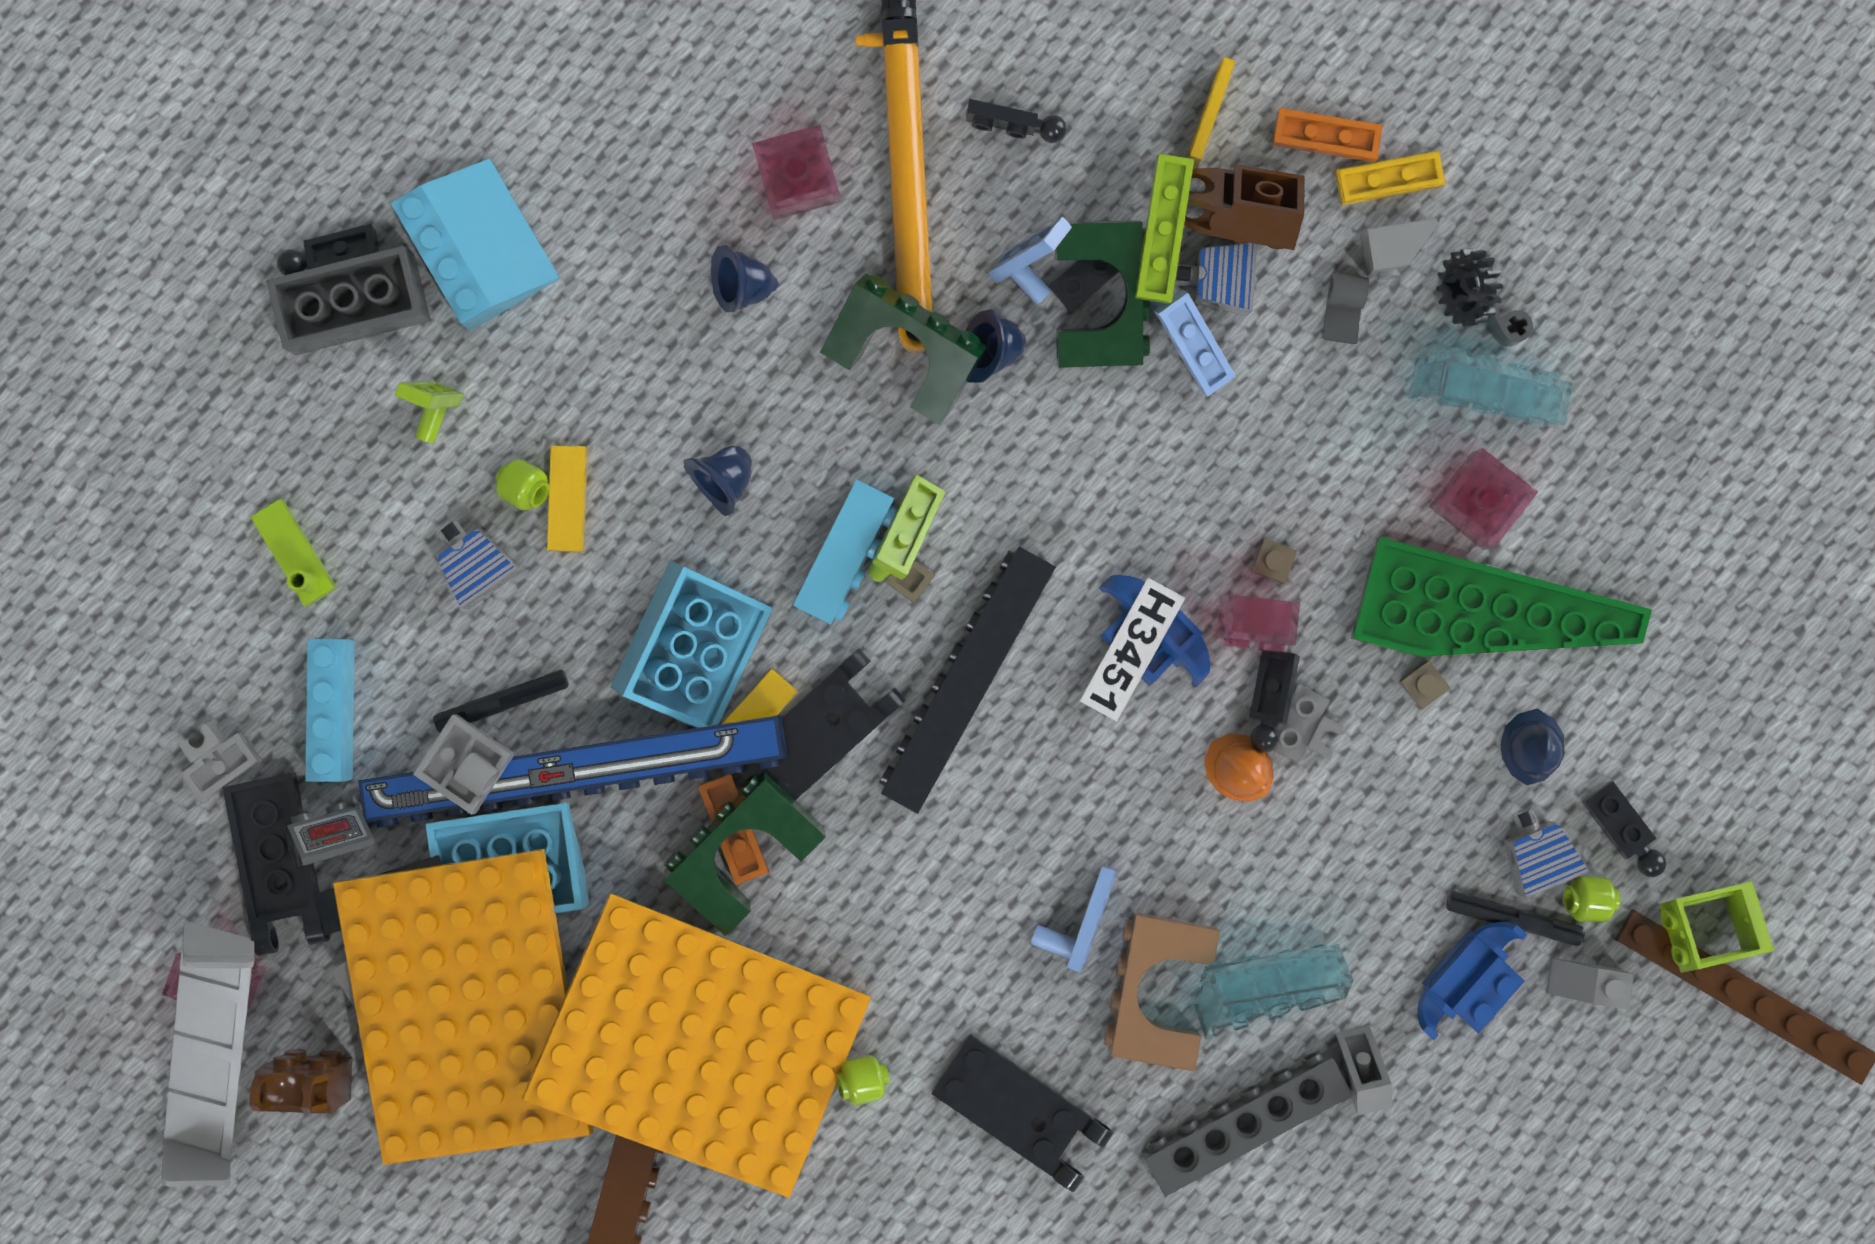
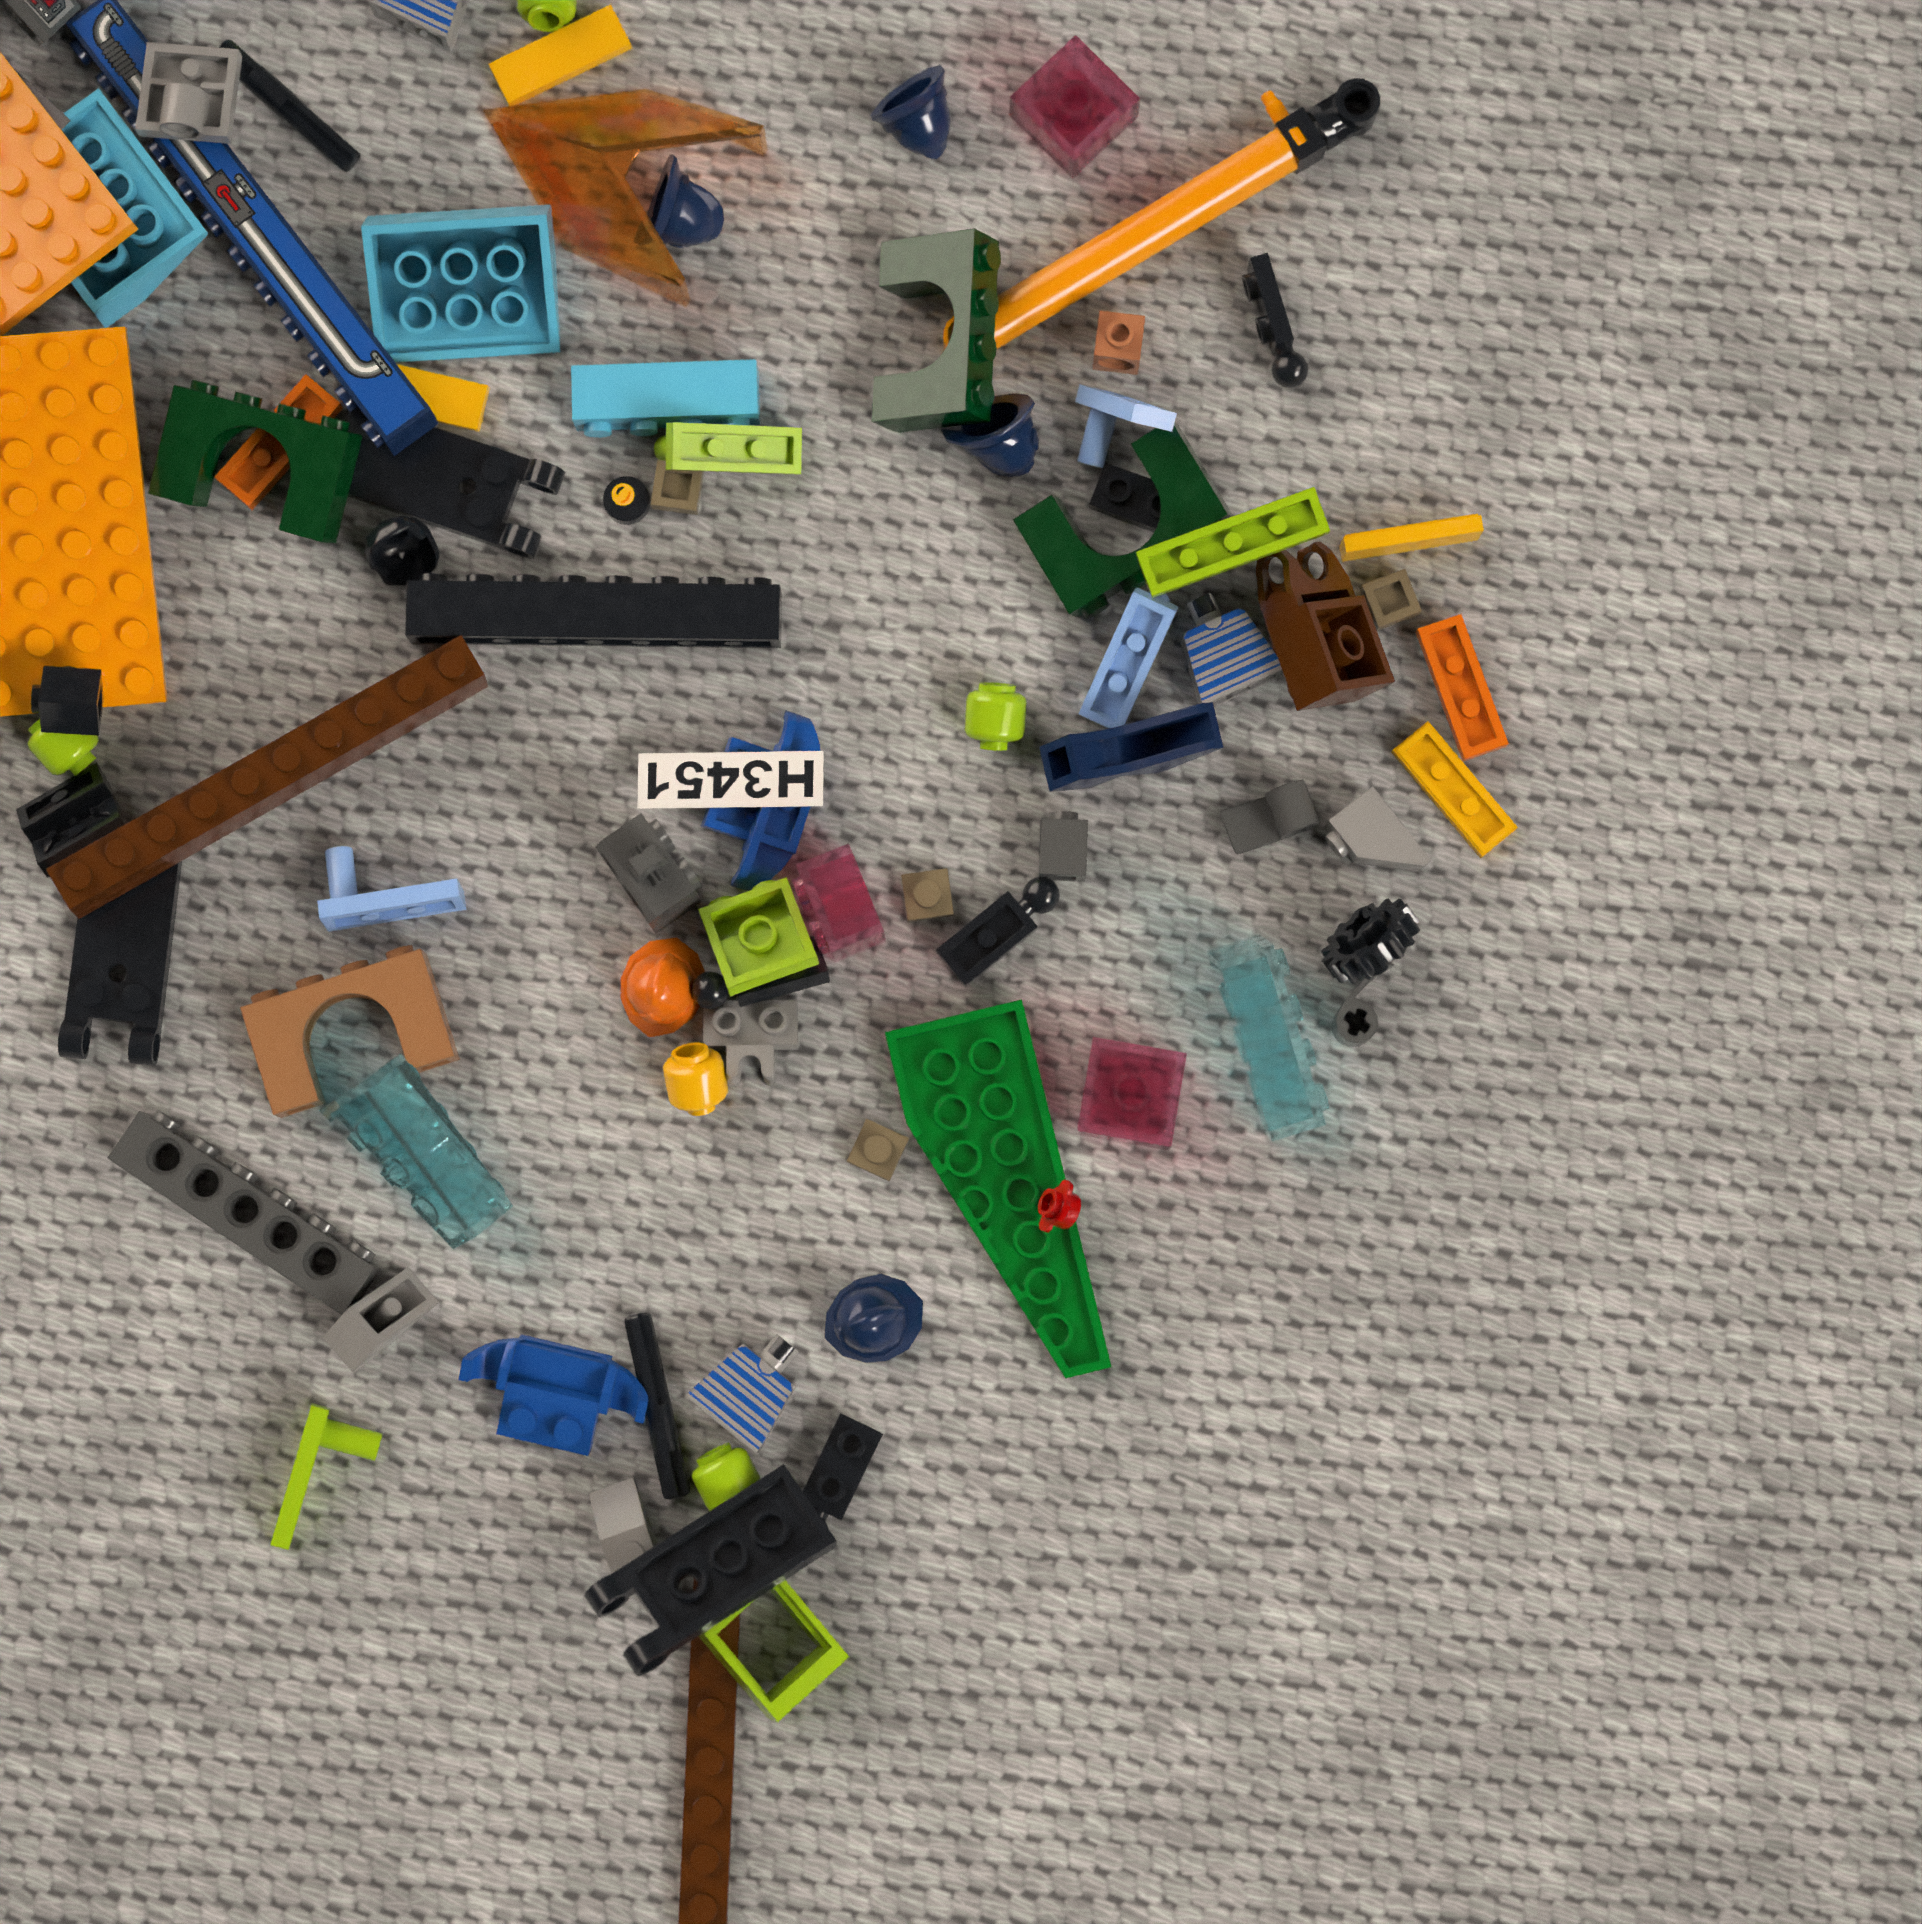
camera: 65 degrees right, 5 degrees down
(648, 519) = (578, 162): none -> clear orange windscreen
(844, 1063) = (69, 700): none -> black brick
(866, 780) = (397, 536): none -> black hair
(899, 617) = (626, 500): none -> black tile
(920, 1102) = (70, 816): none -> black slope
(965, 958) = (267, 777): none -> reddish brown brick
(973, 231) = (1118, 342): none -> nougat brick
(1168, 736) = (651, 877): none -> dark grey hinge
(1180, 451) = (995, 715): none -> lime head
(1243, 148) = (1391, 599): none -> dark tan plate
(1247, 687) = (758, 935): none -> lime plate
(1256, 372) = (1131, 749): none -> dark blue arch
(1293, 454) = (1063, 847): none -> dark grey brick
(1317, 779) = (695, 1078): none -> yellow head
(1323, 527) = (997, 930): none -> black plate
(1416, 1150) = (327, 1434): none -> lime piece
(1534, 587) = (1059, 1207): none -> red plate
(1654, 921) = (732, 1555): none -> black hinge

